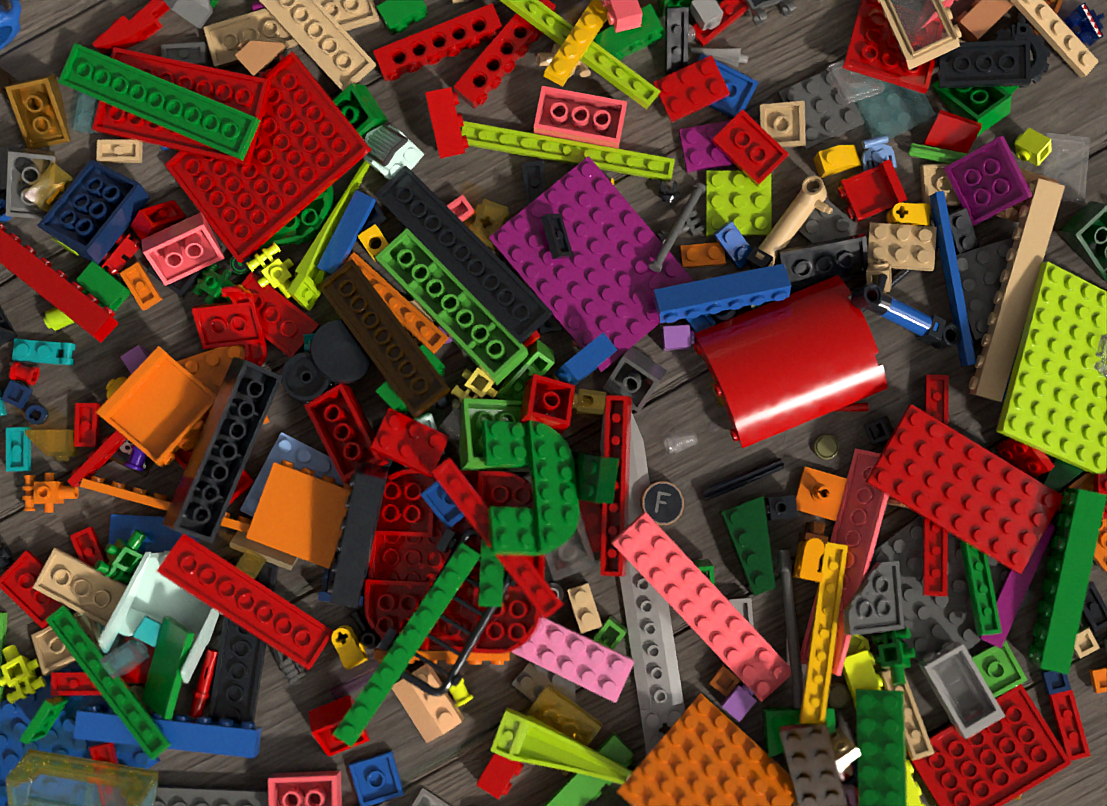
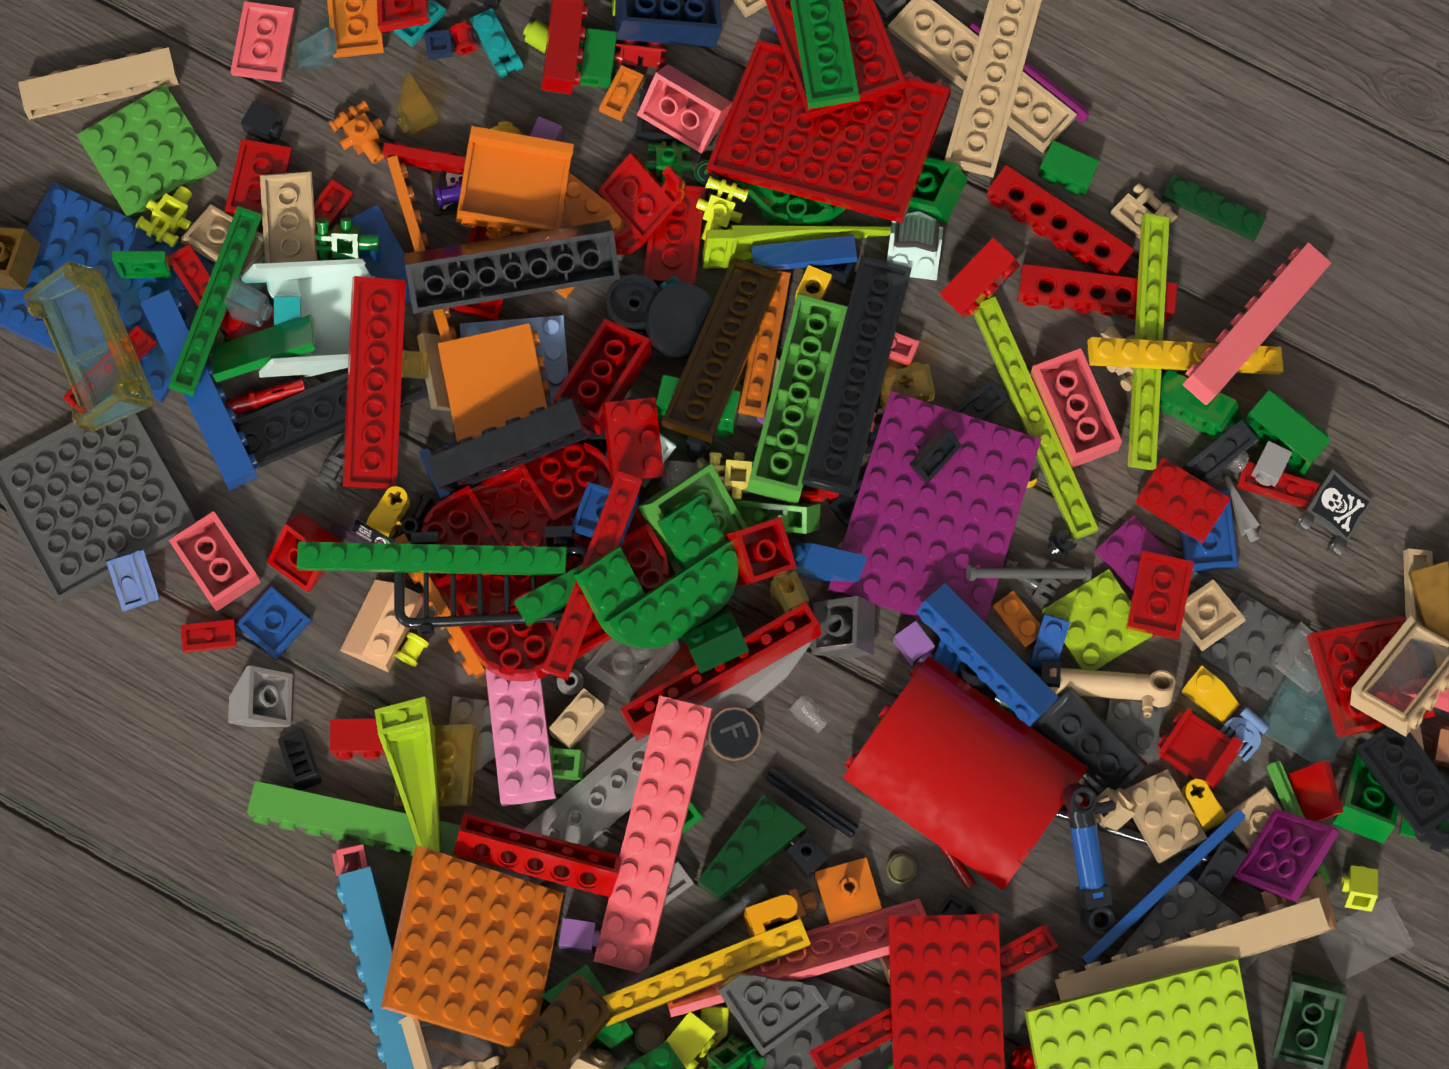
camera: 50 degrees right, 10 degrees down
(18, 449) = (384, 79): teal plate -> none
(44, 414) = (422, 76): dark blue bush -> none
(86, 425) = (450, 128): red plate -> none
(156, 218) = (699, 66): red slope -> none
(259, 54) = (927, 59): medium nougat slope -> none
(358, 669) = (370, 533): none -> black sticker
(668, 699) = (537, 855): none -> red brick
(724, 681) = (591, 908): dark orange plate -> none

